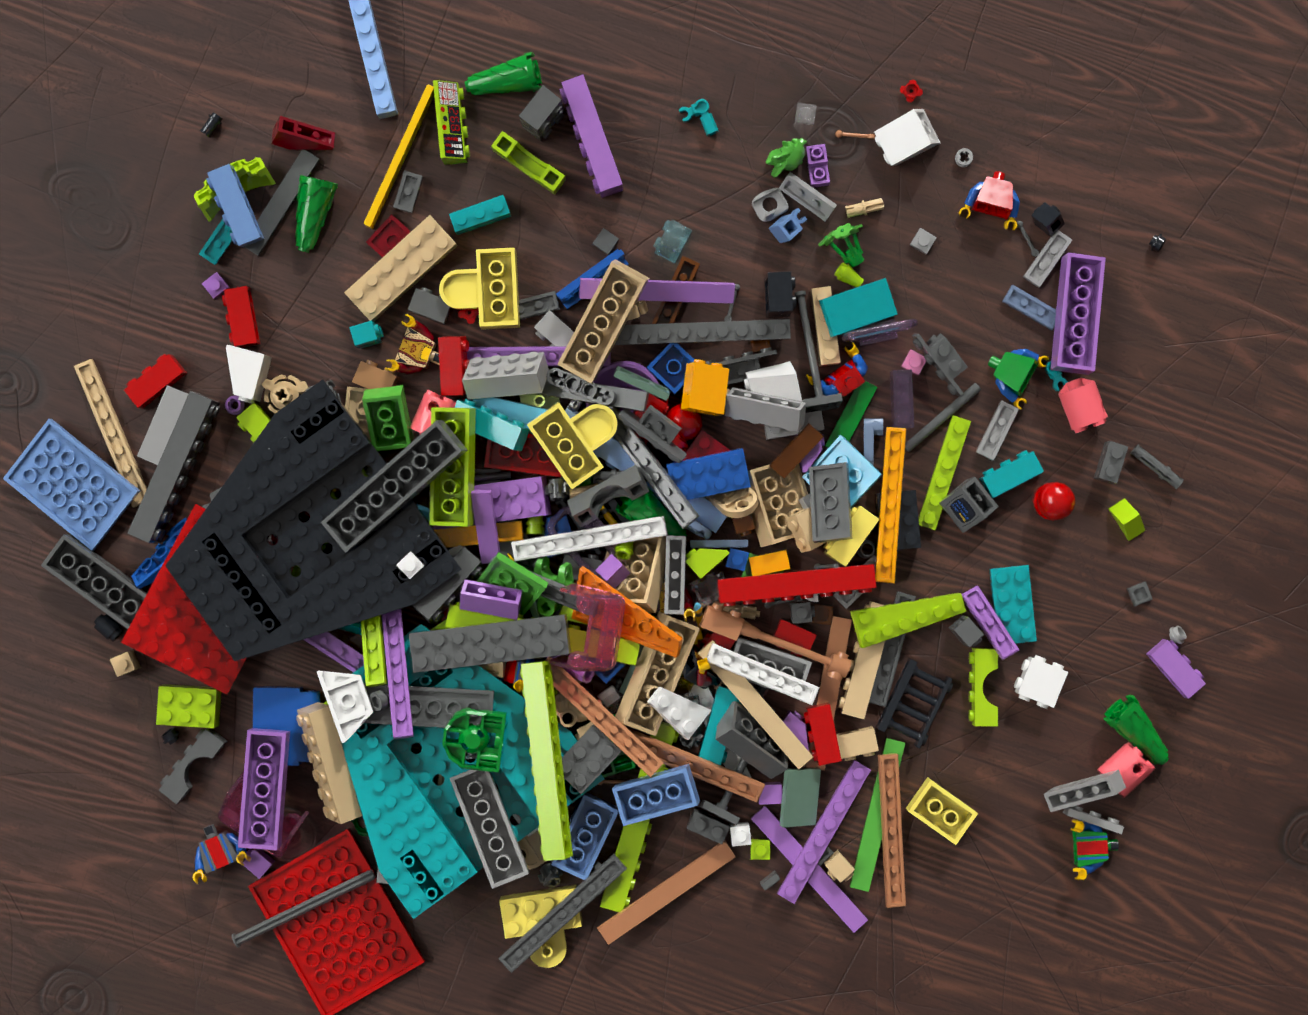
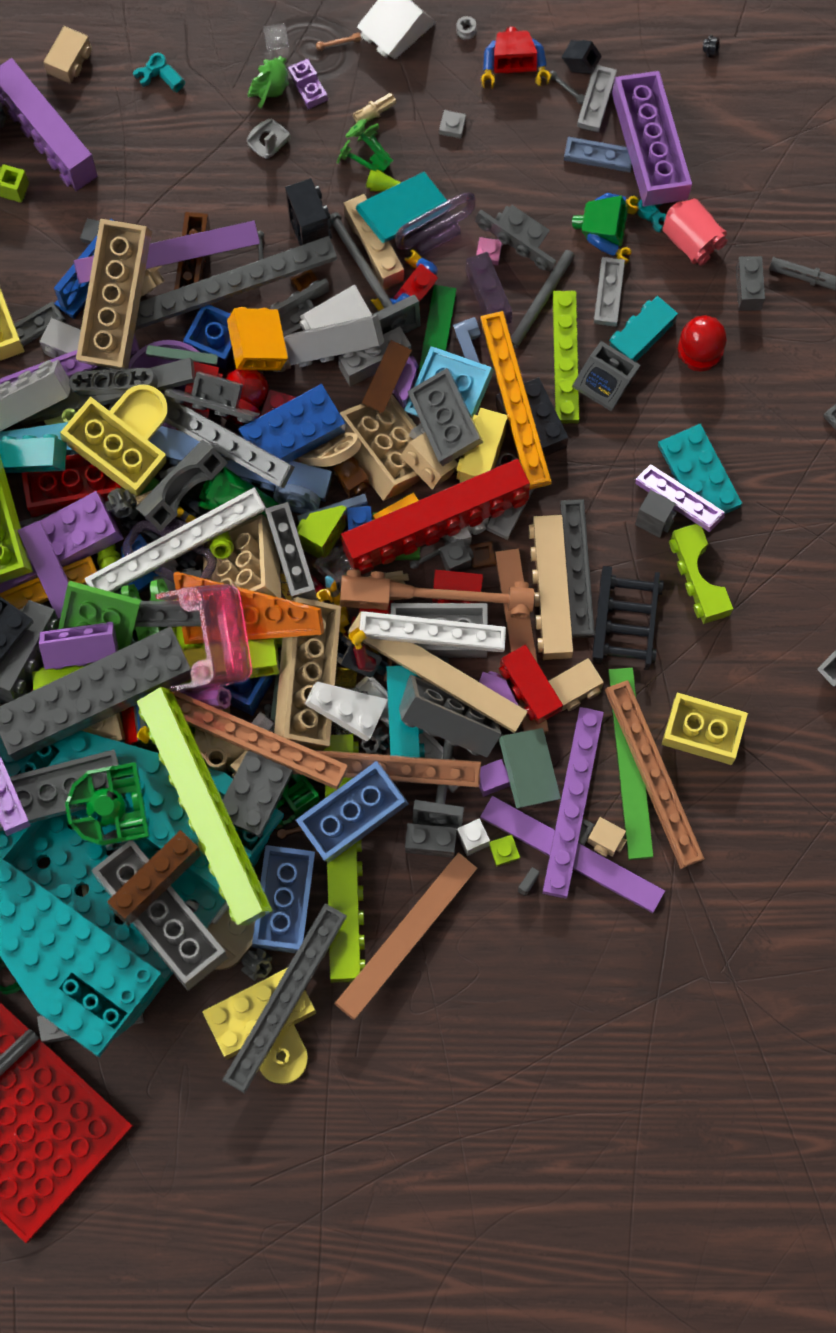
camera: 15 degrees left, 15 degrees down
(493, 804) = (154, 878): none -> reddish brown brick
(612, 571) = (216, 568): medium lavender brick -> none
(630, 76) = (67, 55): none -> tan brick
(672, 240) = (169, 208): clear light blue cylinder -> none
(787, 226) = (294, 151): medium blue brick -> none
(807, 196) = (307, 116): light grey plate -> none
(892, 620) = (563, 528): lime wing -> none
(1040, 681) = (763, 544): white brick -> none
(1127, 519) = (794, 339): lime slope -> none

